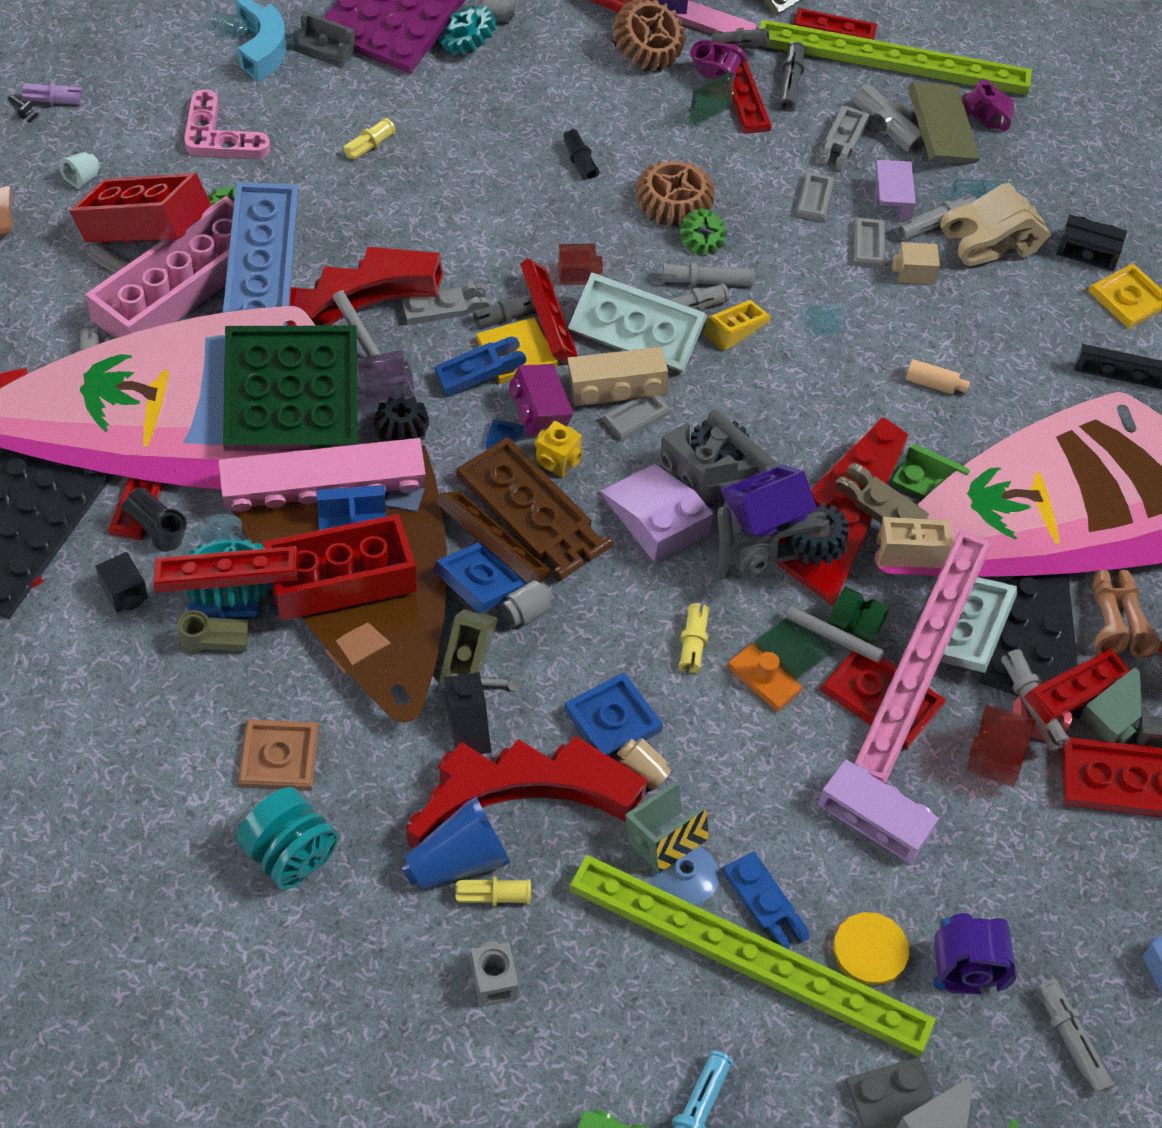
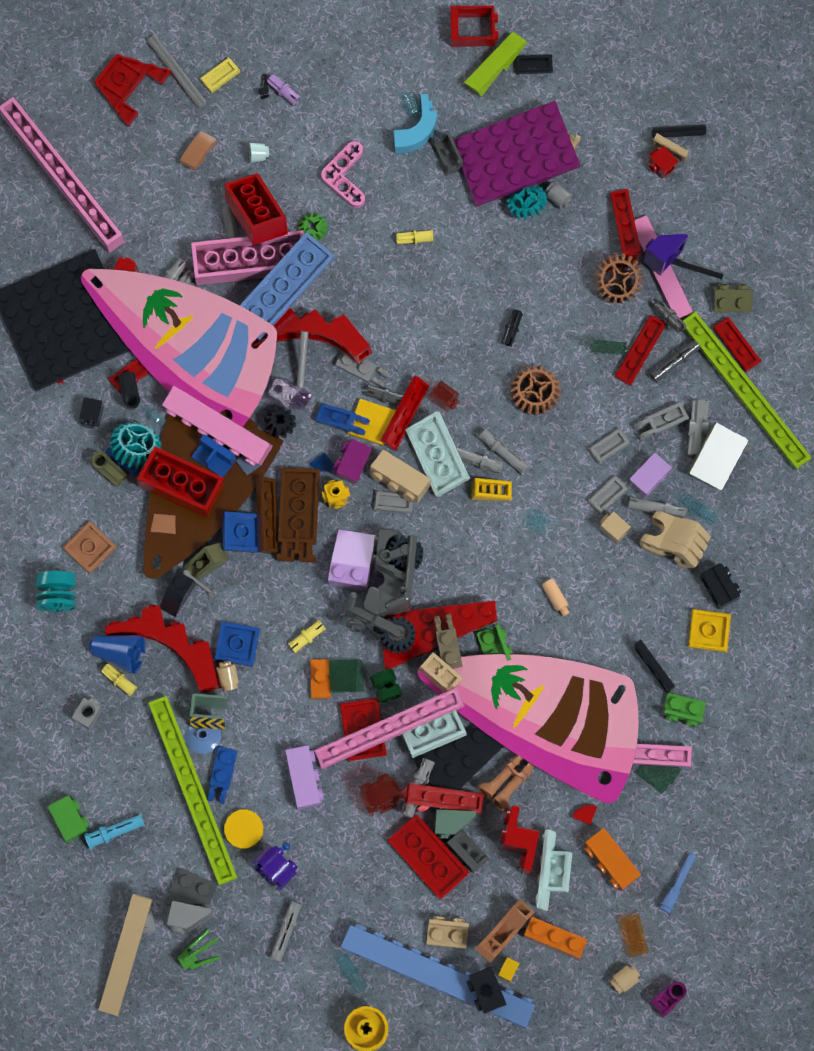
camera: 45 degrees right, 20 degrees up
(225, 569) = (126, 449): red tile -> none
(290, 387) = (237, 370): dark green plate -> none
(526, 603) = (250, 561): light grey brick -> none
(695, 241) = (534, 424): bright green gear -> none
(716, 59) = (638, 324): magenta piece -> none
(770, 499) = (380, 604): dark purple slope -> none
(834, 634) = (367, 685): light grey bar -> none
(991, 106) = (760, 465): magenta piece -> none

